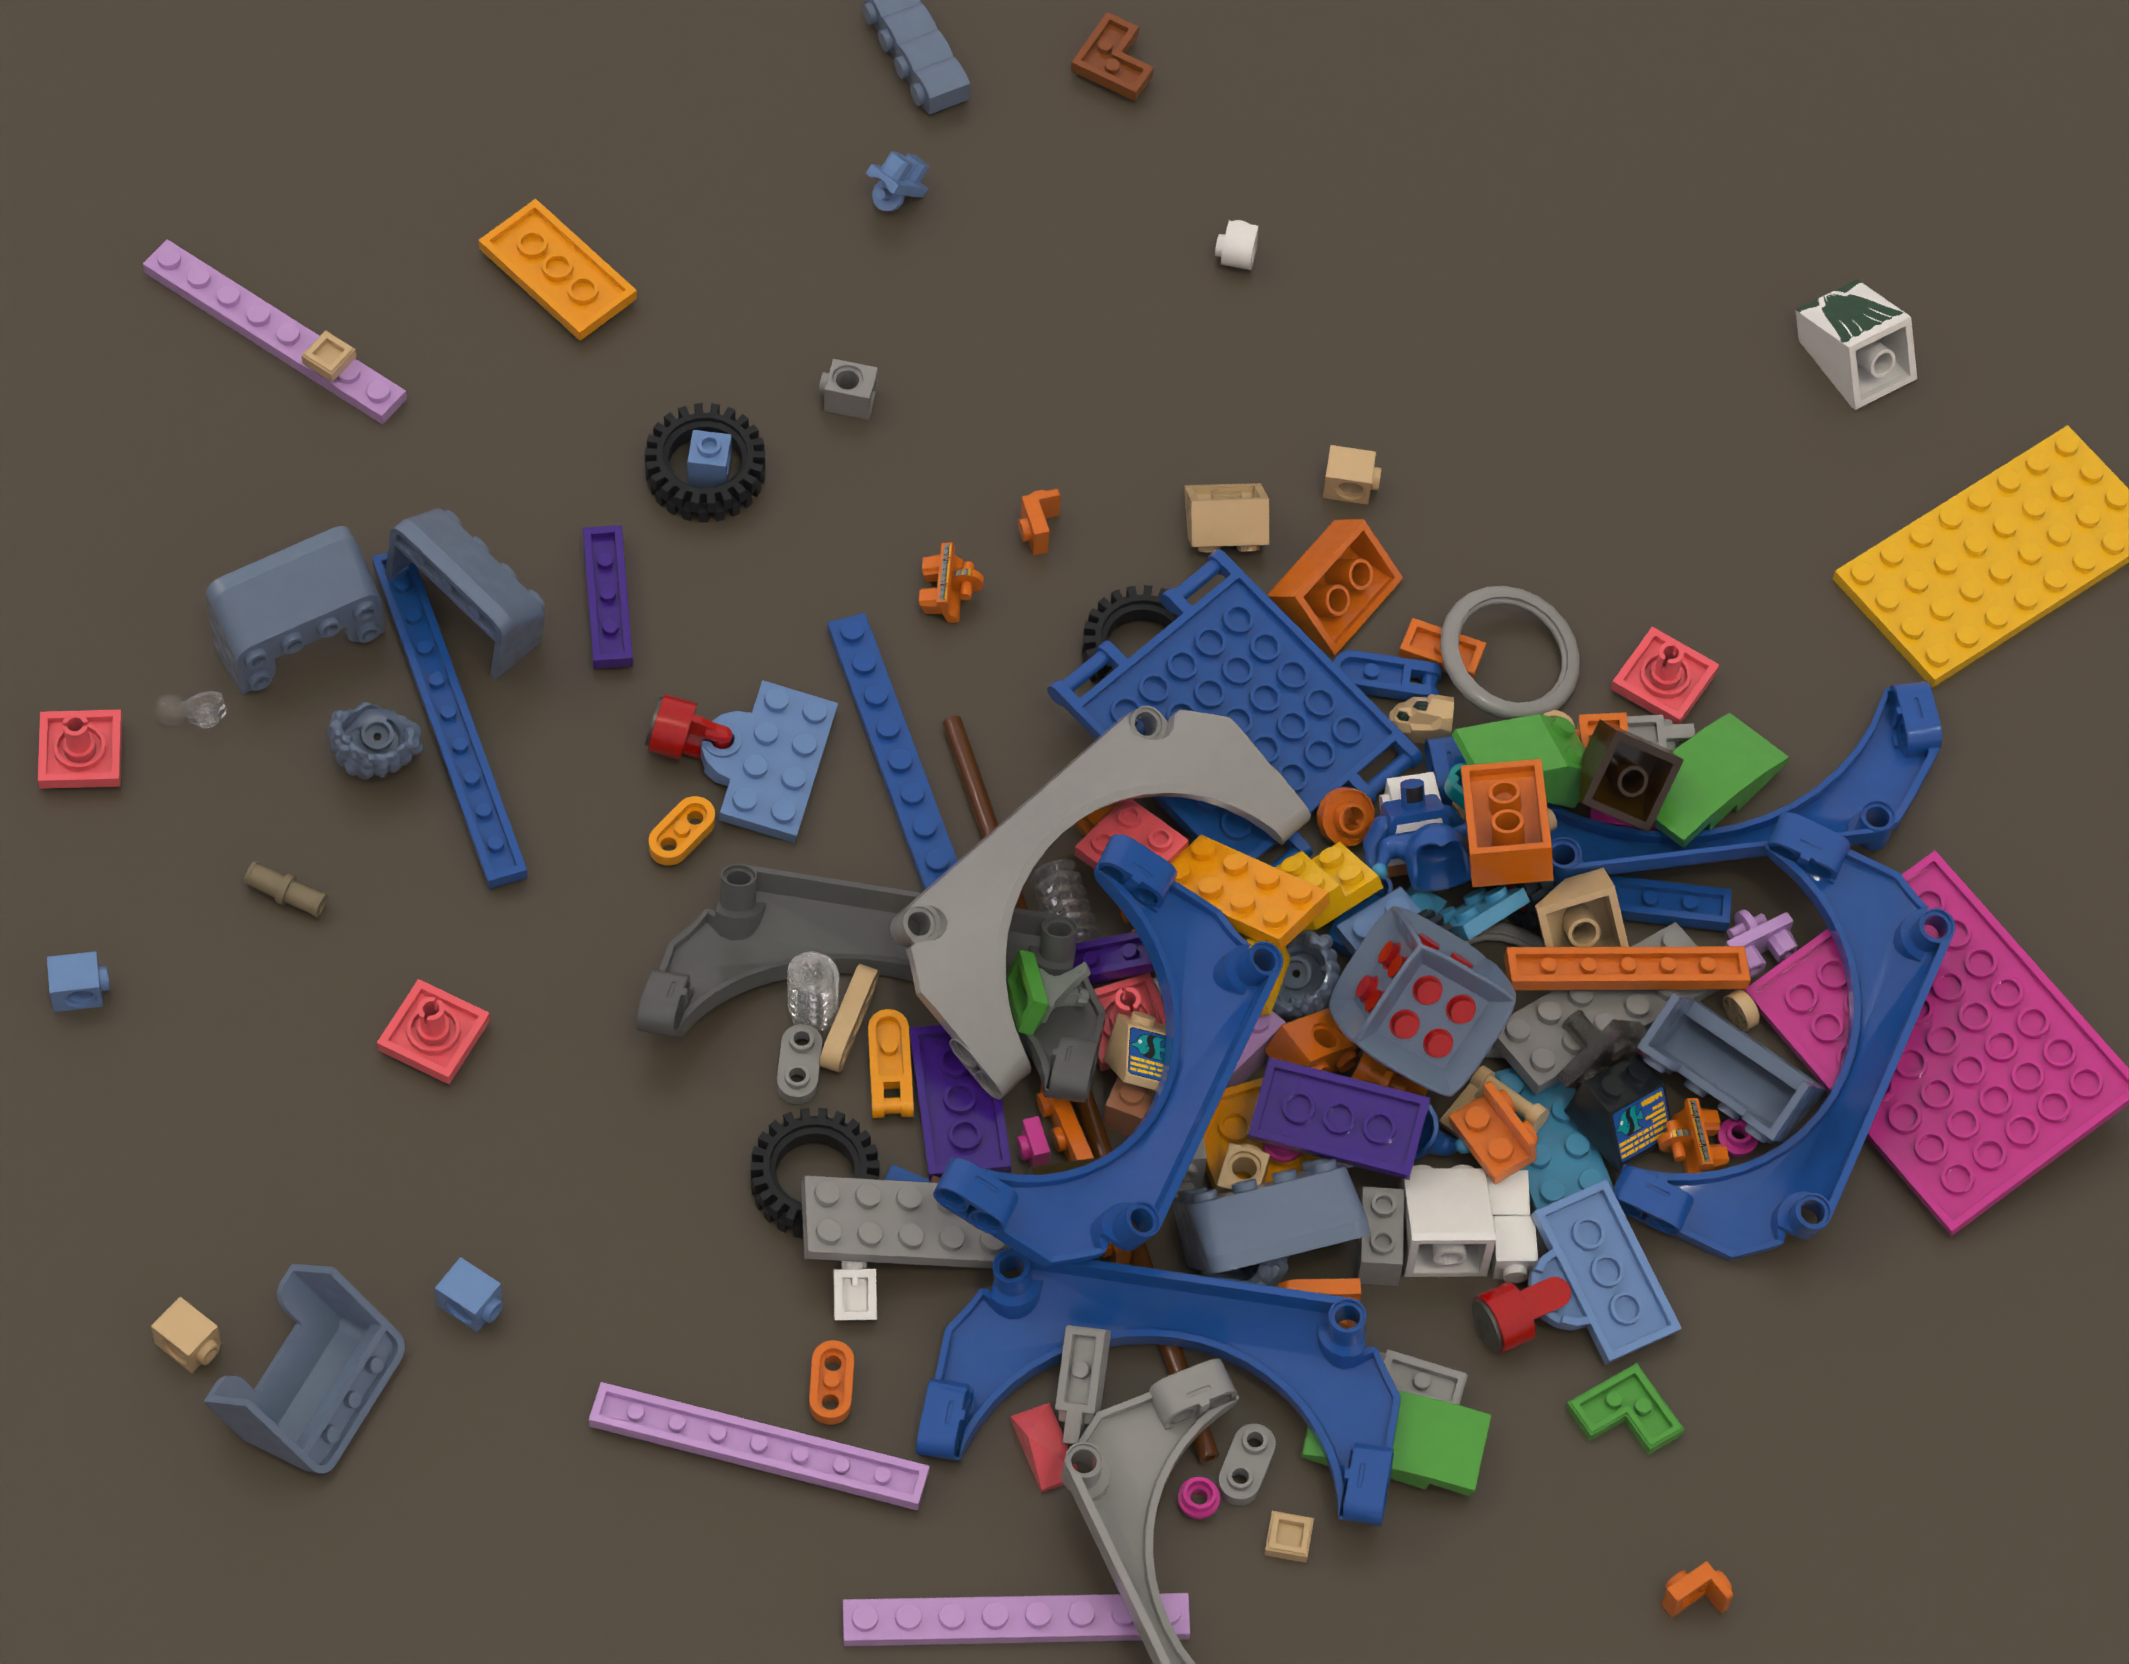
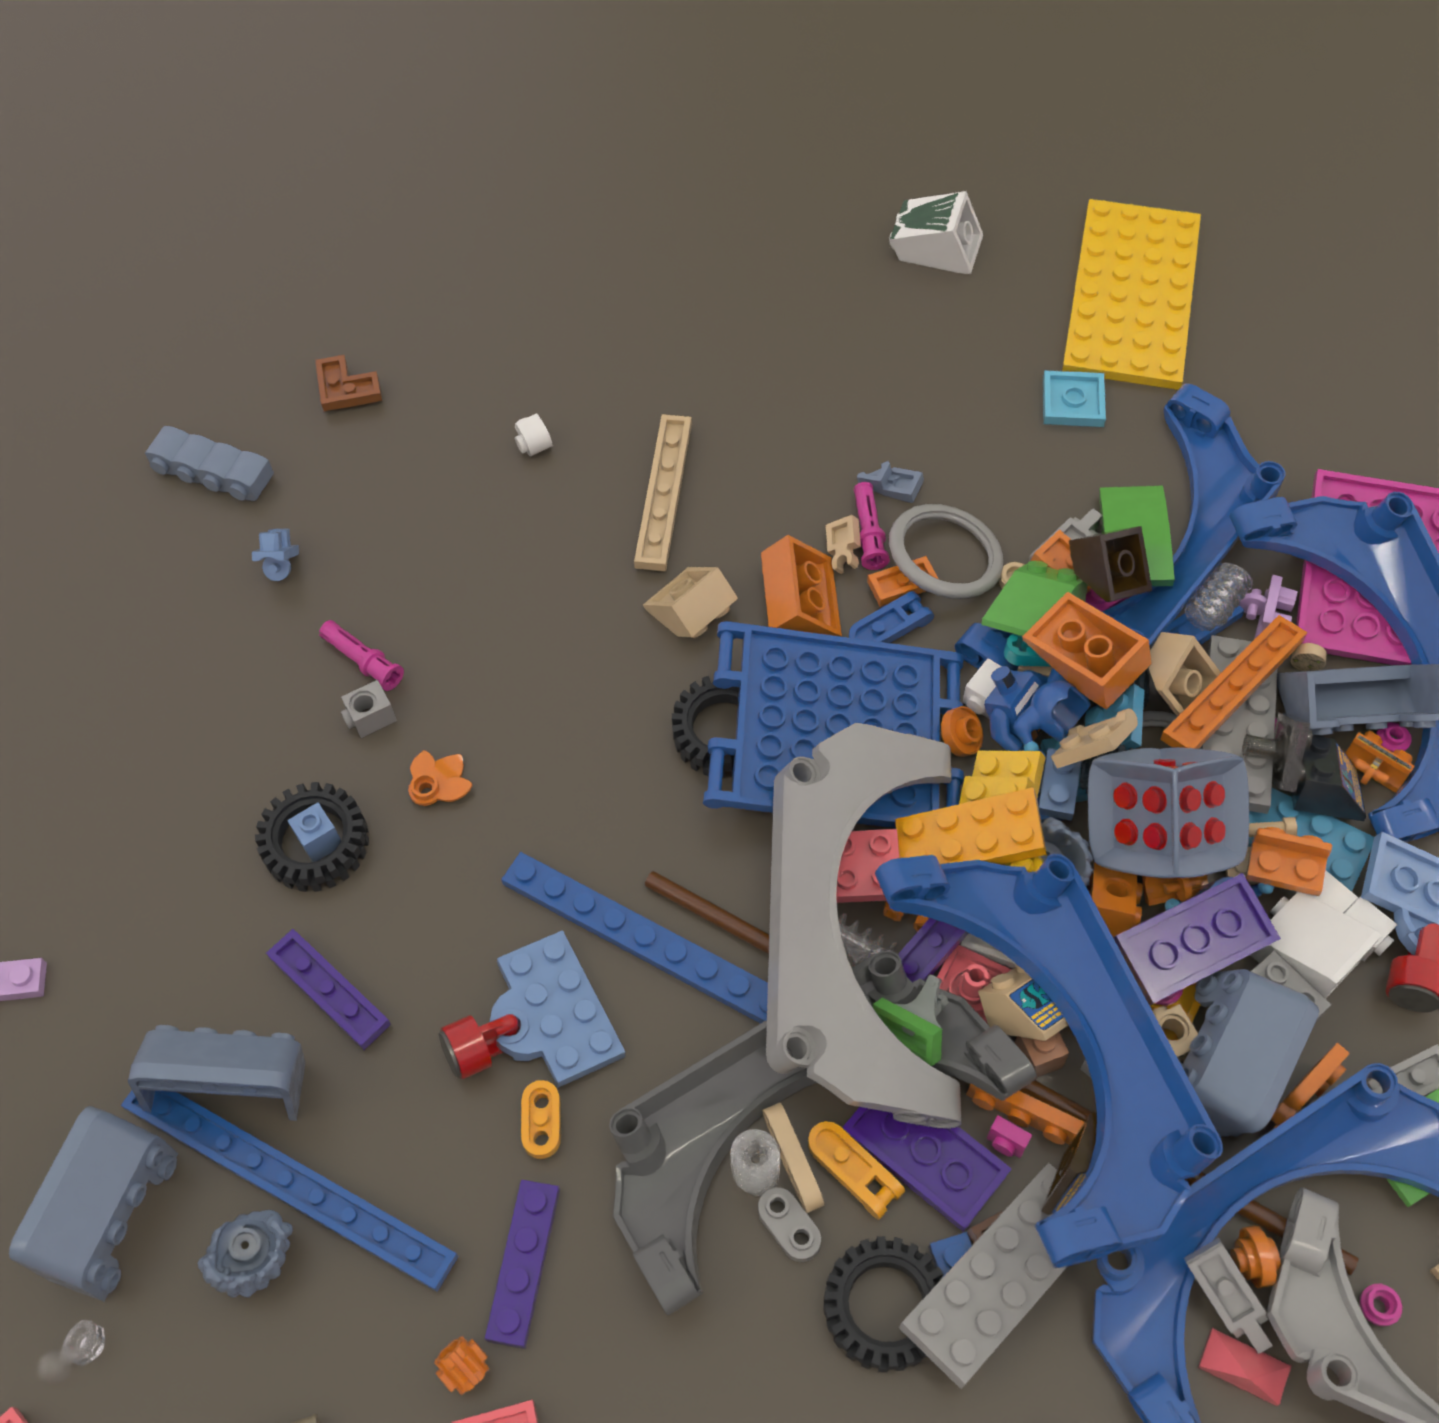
camera: 35 degrees left, 0 degrees up
(460, 947) = (461, 1365): none -> orange gear
(557, 269) = (84, 785): light orange plate -> none
(571, 922) = (522, 1264): none -> dark purple plate
(855, 1292) = (1009, 1376): white bracket -> none
(858, 497) = (441, 776): none -> orange plate
(891, 347) = (370, 661): none -> dark pink pin
(955, 582) = (565, 798): orange hips -> none
(1033, 515) = (573, 700): orange bracket -> none
(1132, 1376) = (1256, 1256): none -> orange plate
(1248, 1462) = (1378, 1246): light grey plate -> none
(1308, 394) = (663, 493): none -> tan plate
(1351, 475) = (739, 519): tan brick -> none
(1424, 569) = (841, 540): none -> tan plate
(1424, 717) = (940, 629): tan rock -> none
(1432, 899) = (1095, 738): none -> tan plate
(1458, 584) = (871, 535): none -> dark pink pin
(1538, 555) = (894, 482): none -> sand blue slope
(1665, 676) = (1042, 495): coral plate -> none
(1707, 884) = (1218, 596): none -> clear piece
(1809, 612) = (1074, 398): none -> medium azure tile

